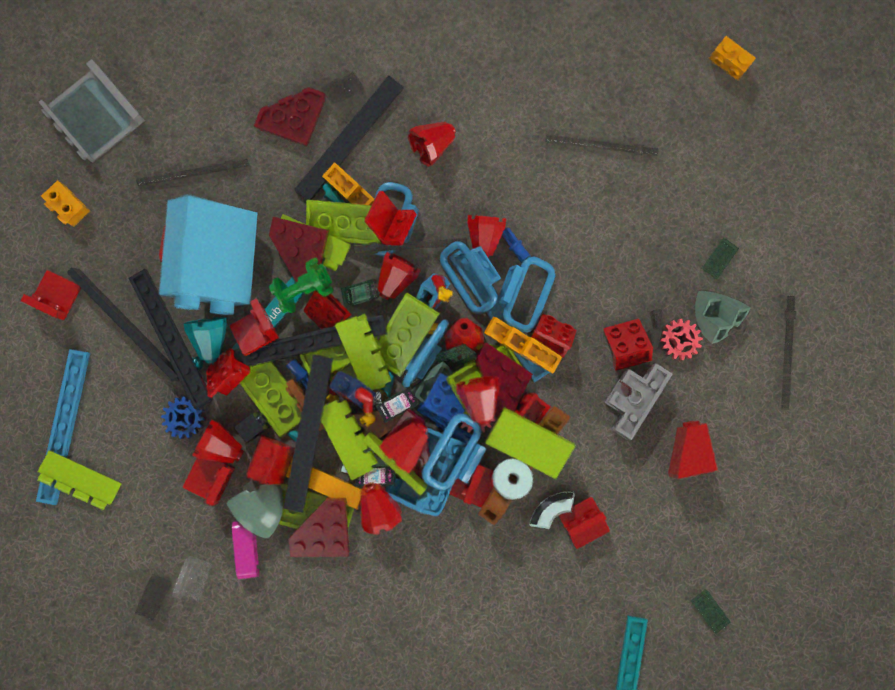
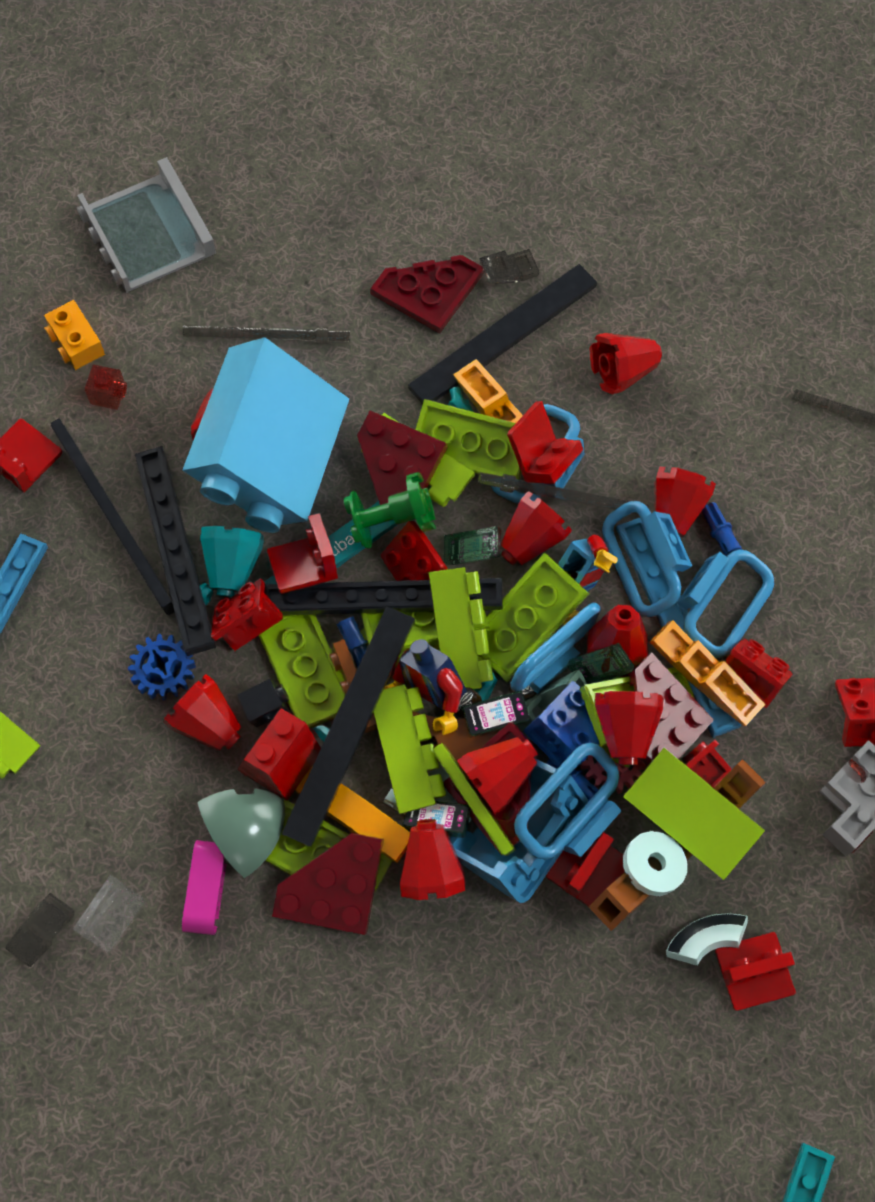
camera: 15 degrees right, 15 degrees down
(96, 236) = (105, 387): none -> clear red brick
(208, 480) = (176, 767): red bracket -> none

